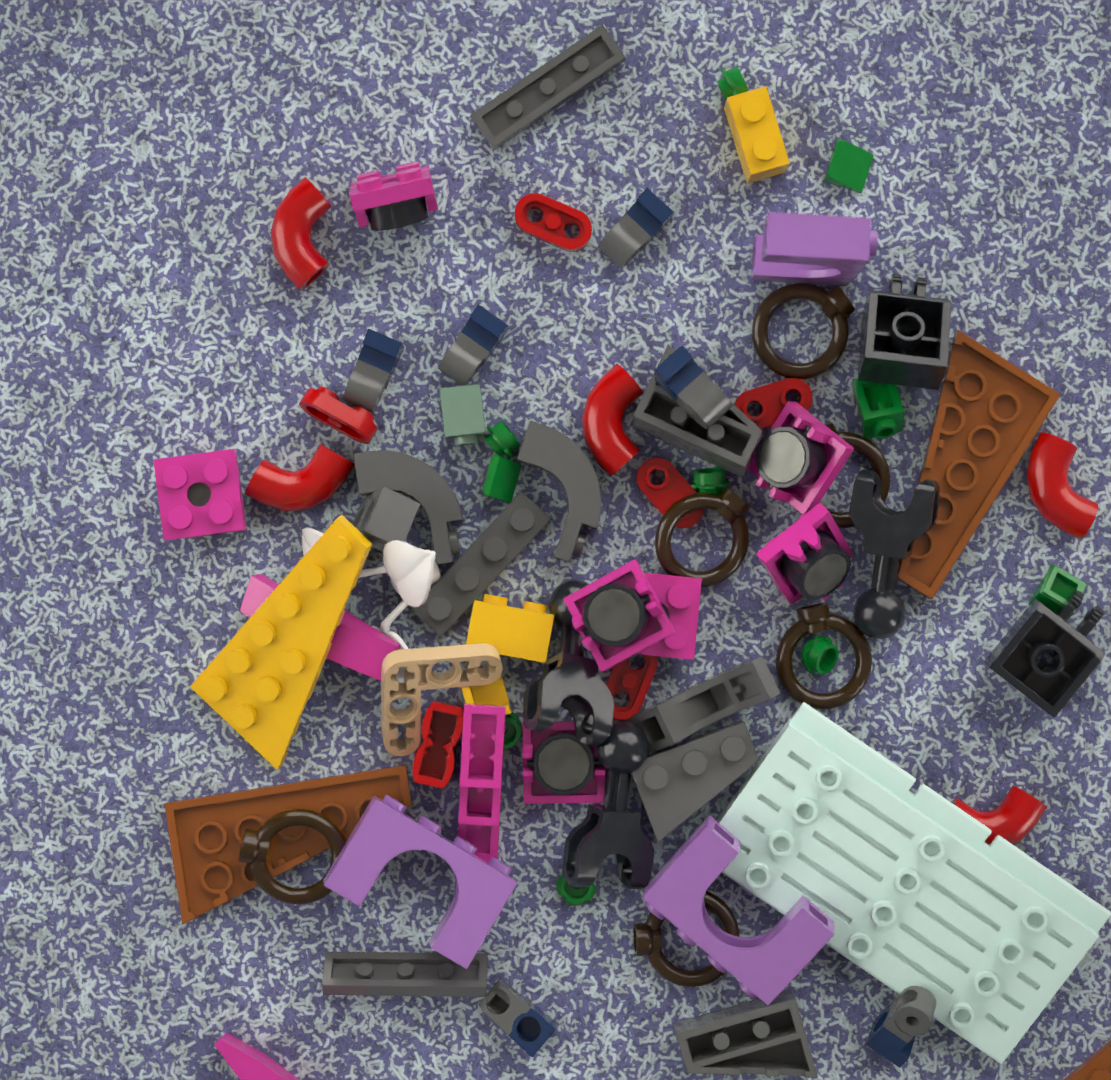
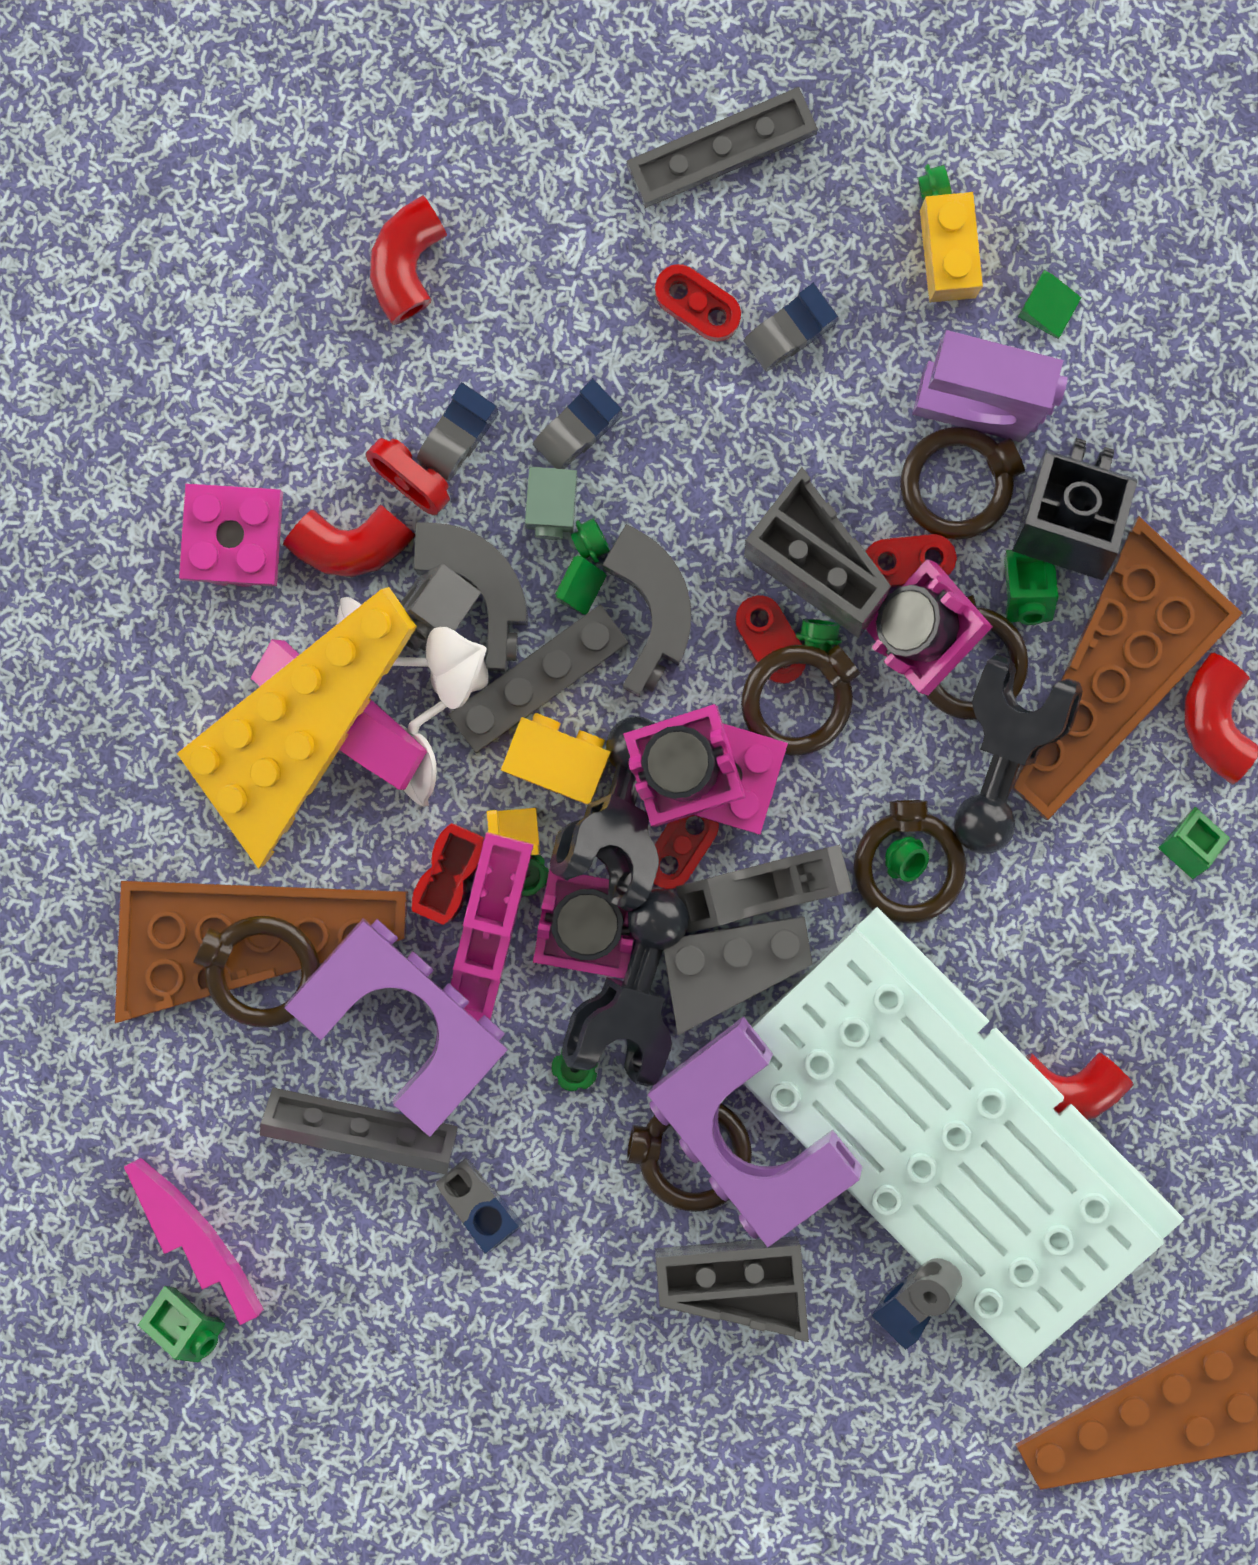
camera: 15 degrees right, 0 degrees up
(393, 198) = (519, 239): dark pink piece -> none
(419, 676) = (442, 791): tan beam -> none
(604, 416) = (711, 541): red cylinder -> none
(691, 388) = (818, 520): leg -> none
(808, 557) = (914, 742): piece -> none
(1072, 653) = (1197, 911): black hinge -> none

